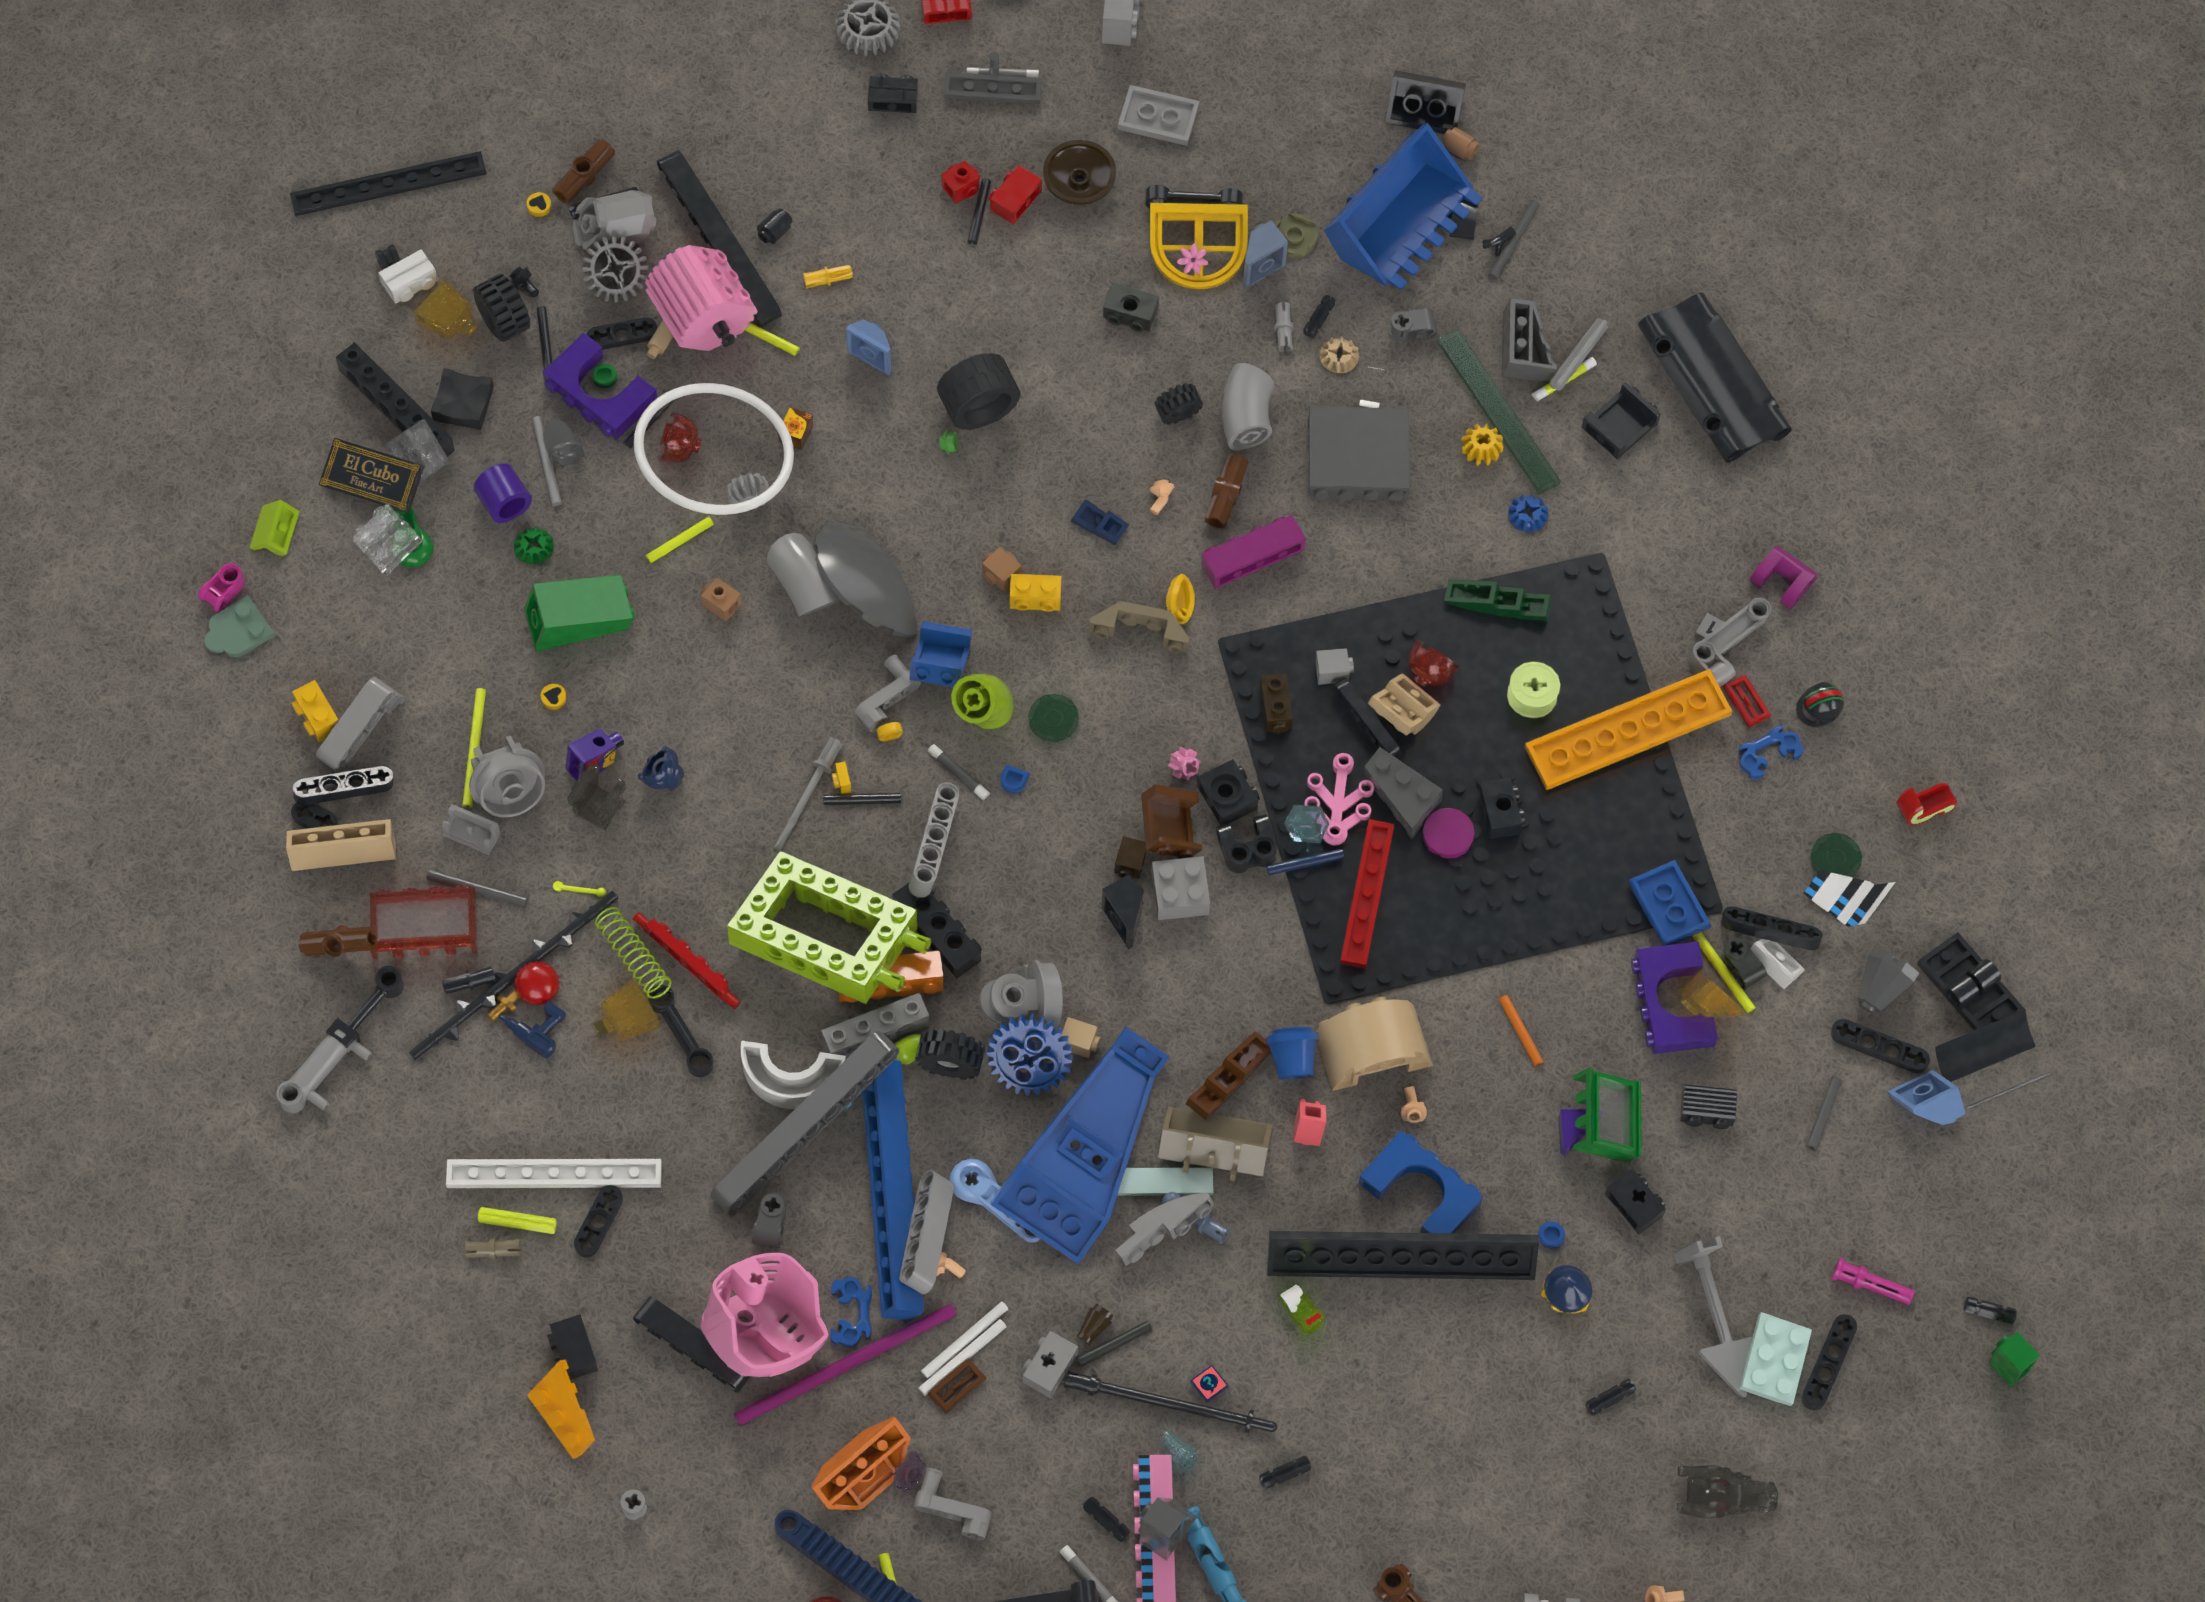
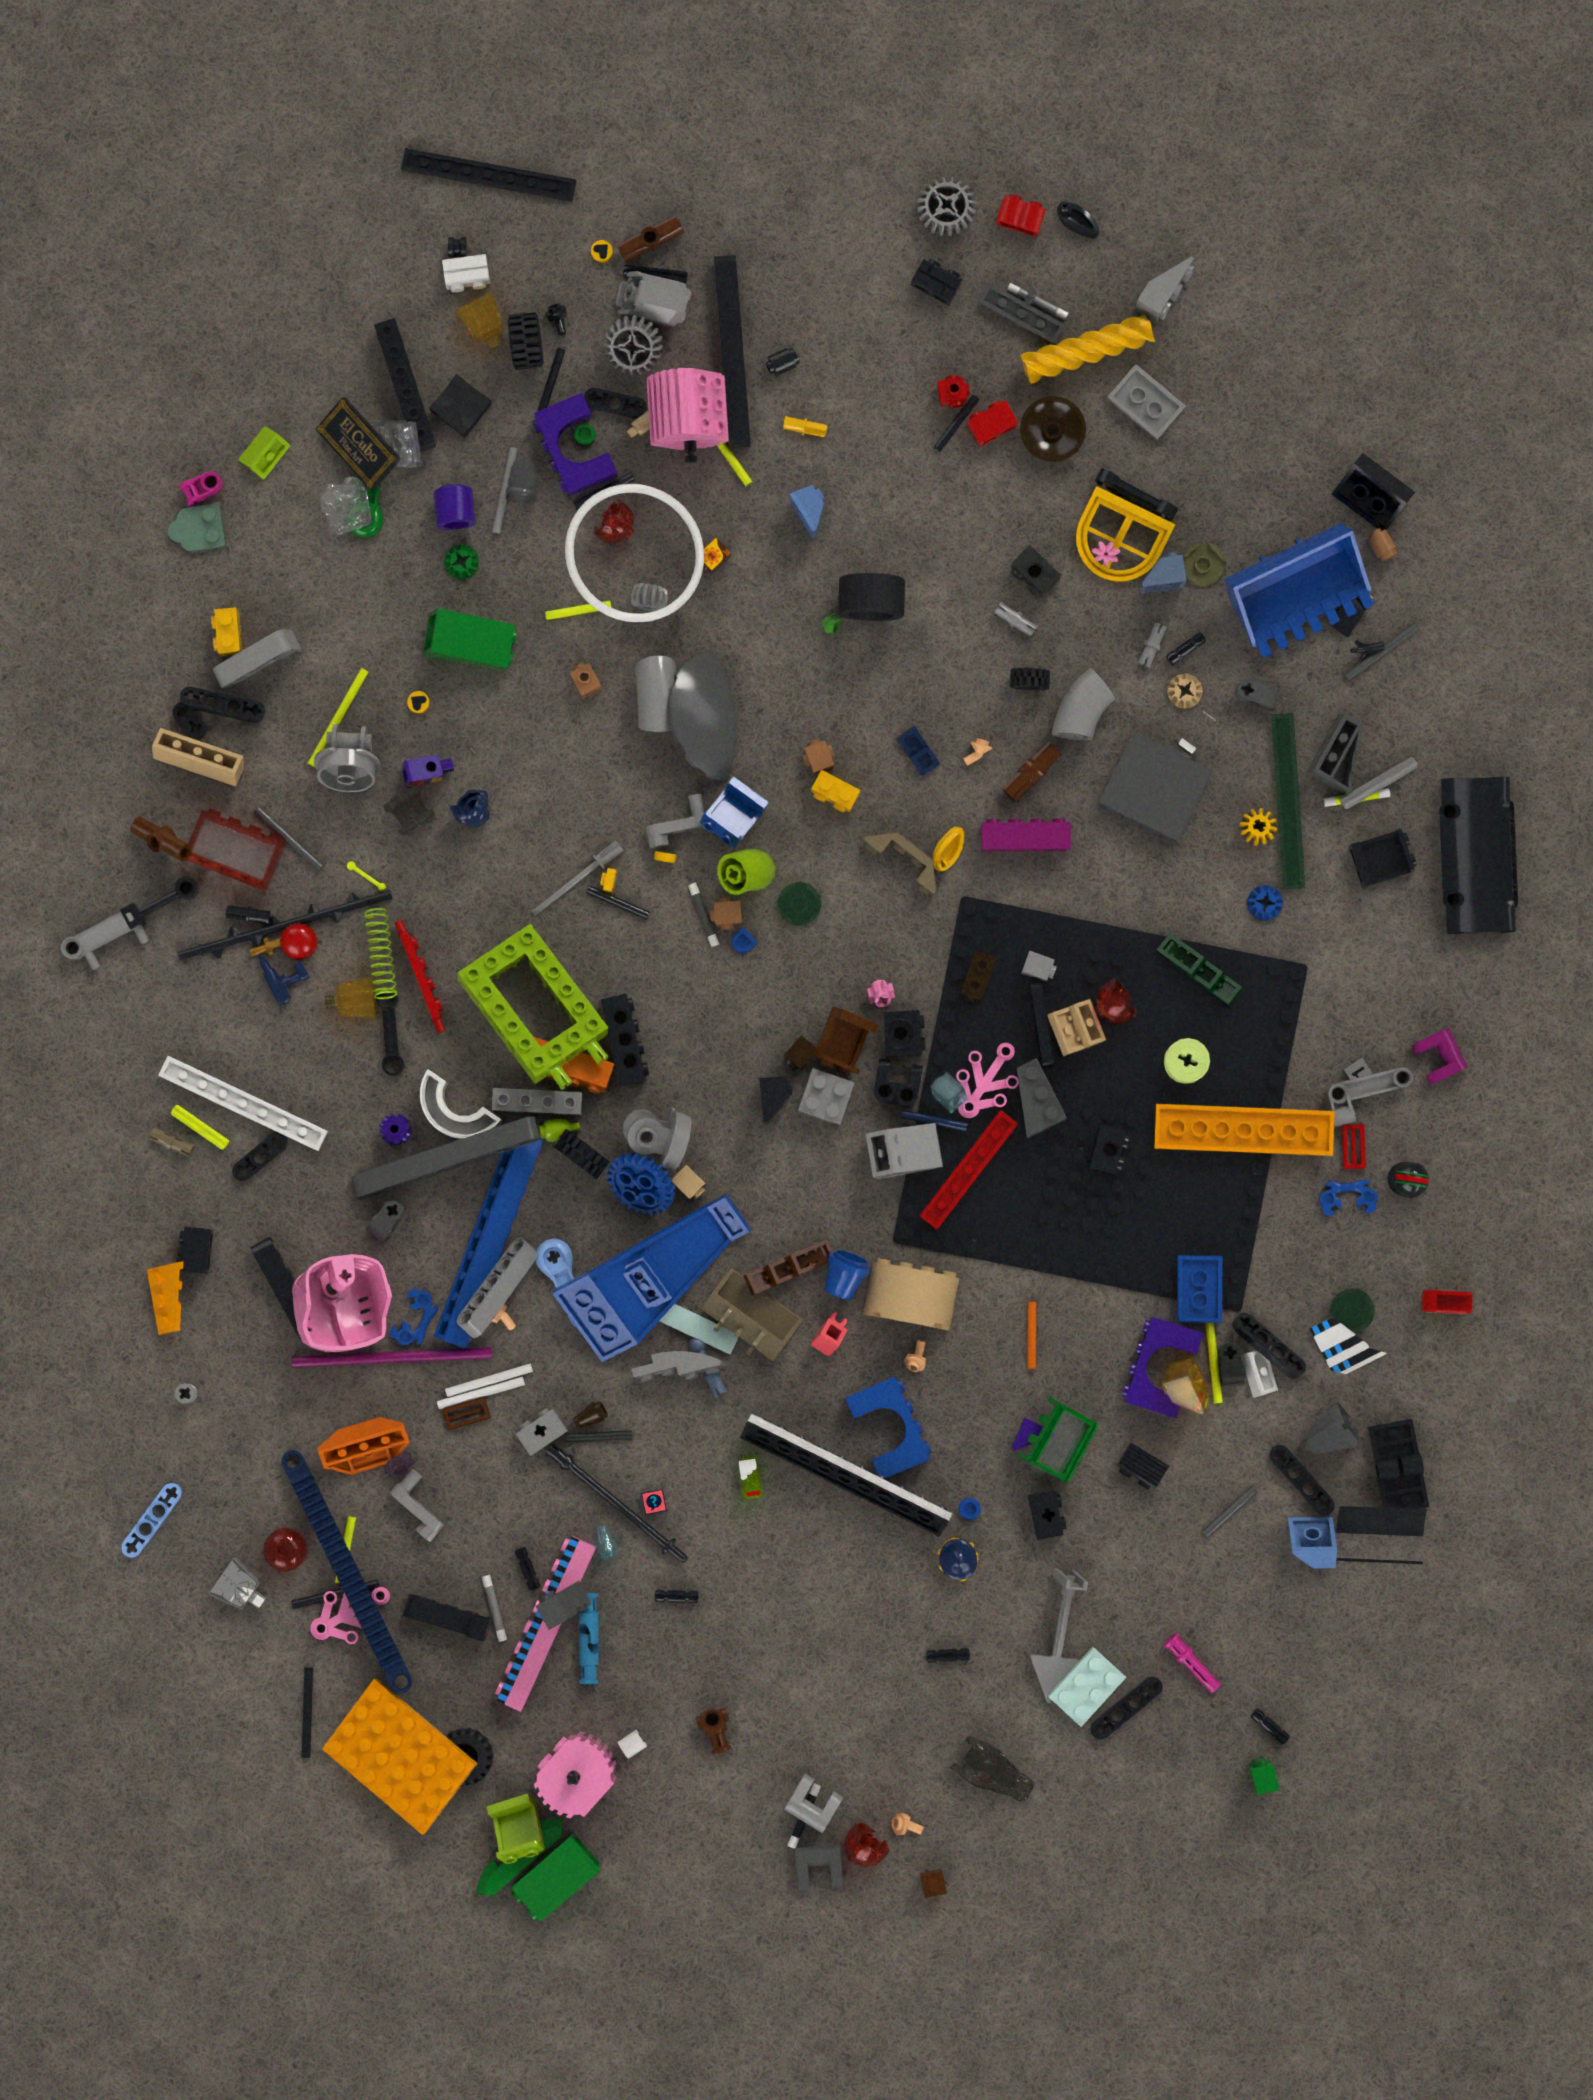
camera: 30 degrees right, 20 degrees up
(471, 829) = (303, 789): light grey hinge -> none
(735, 1131) = (403, 1133): none -> dark purple brick
(933, 849) = (662, 964): light grey beam -> none
(983, 757) = (726, 913): none -> medium nougat brick
(1076, 86) = (1087, 347): none -> yellow piece
(1134, 361) = (1015, 619): none -> light grey pin
(1290, 902) = (904, 1150): none -> light grey slope
(1448, 833) = (1057, 1149): magenta tile -> none

